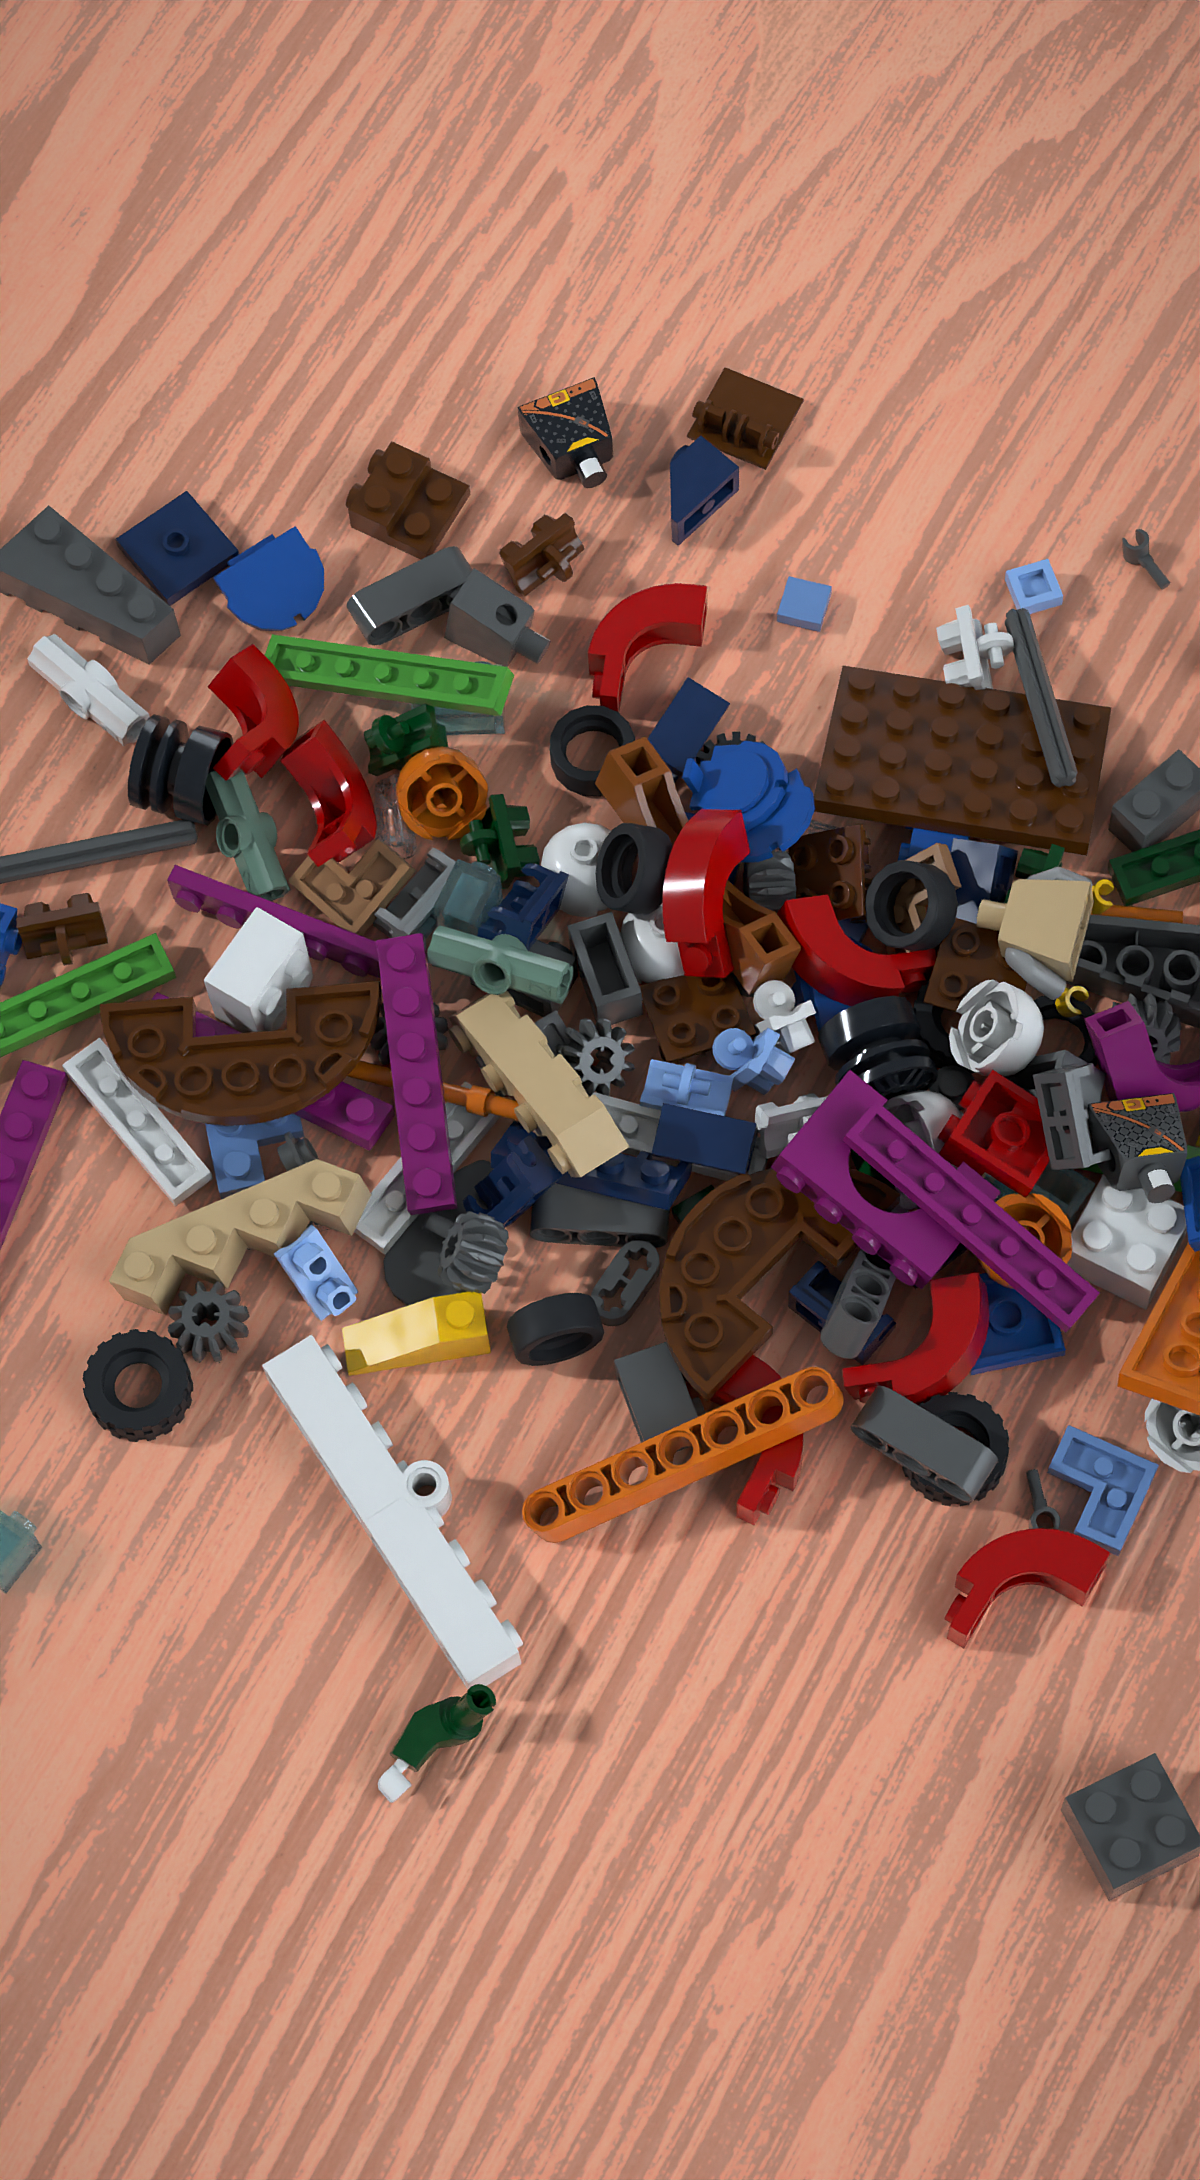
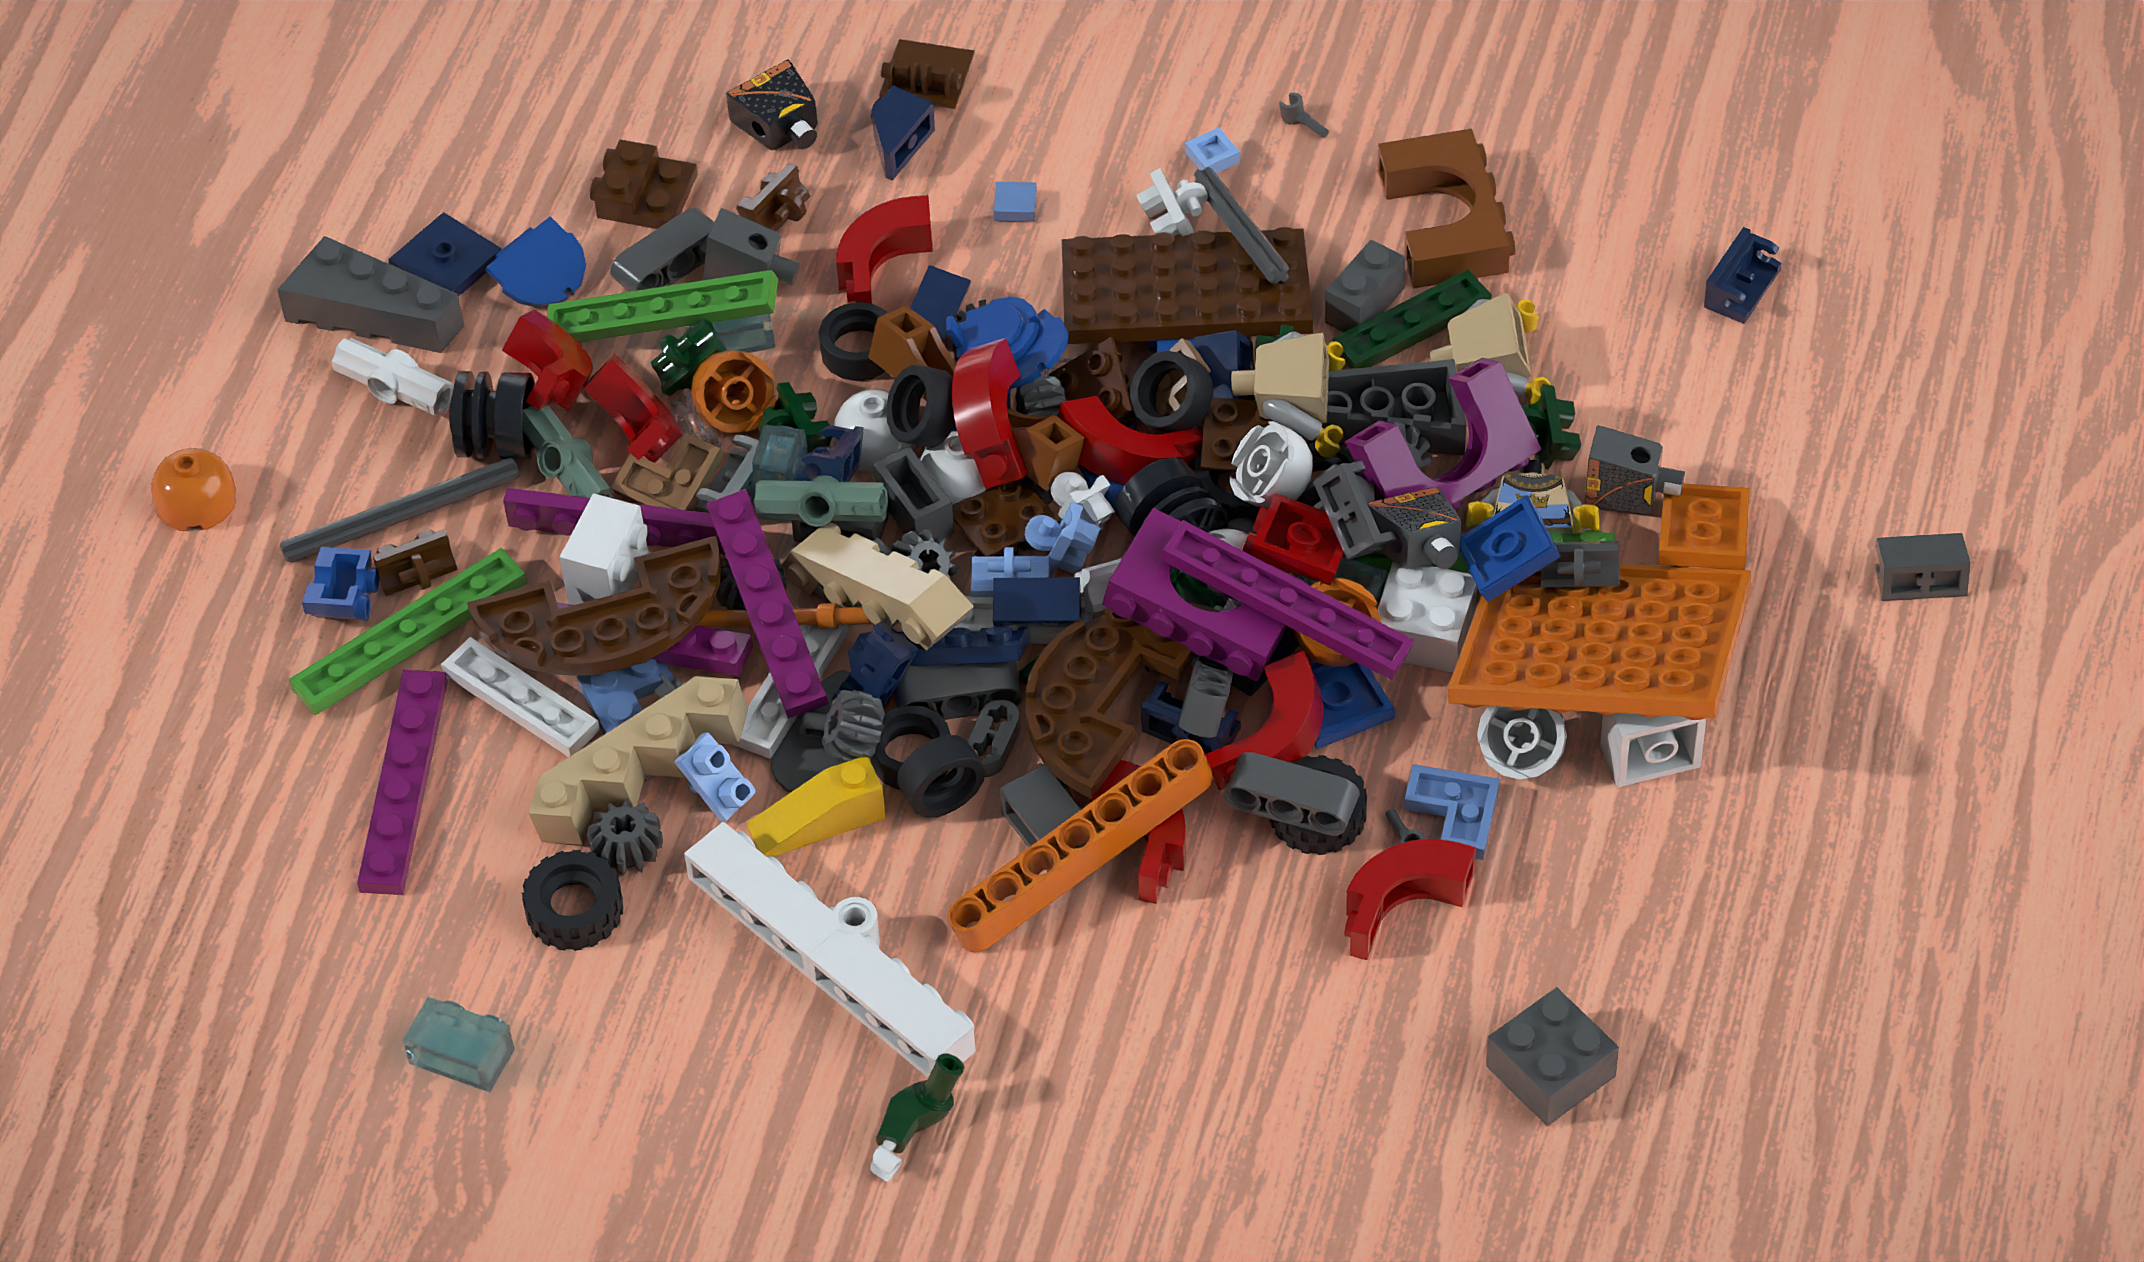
camera: 15 degrees left, 15 degrees down
(533, 1243) = (901, 722): none -> black tyre

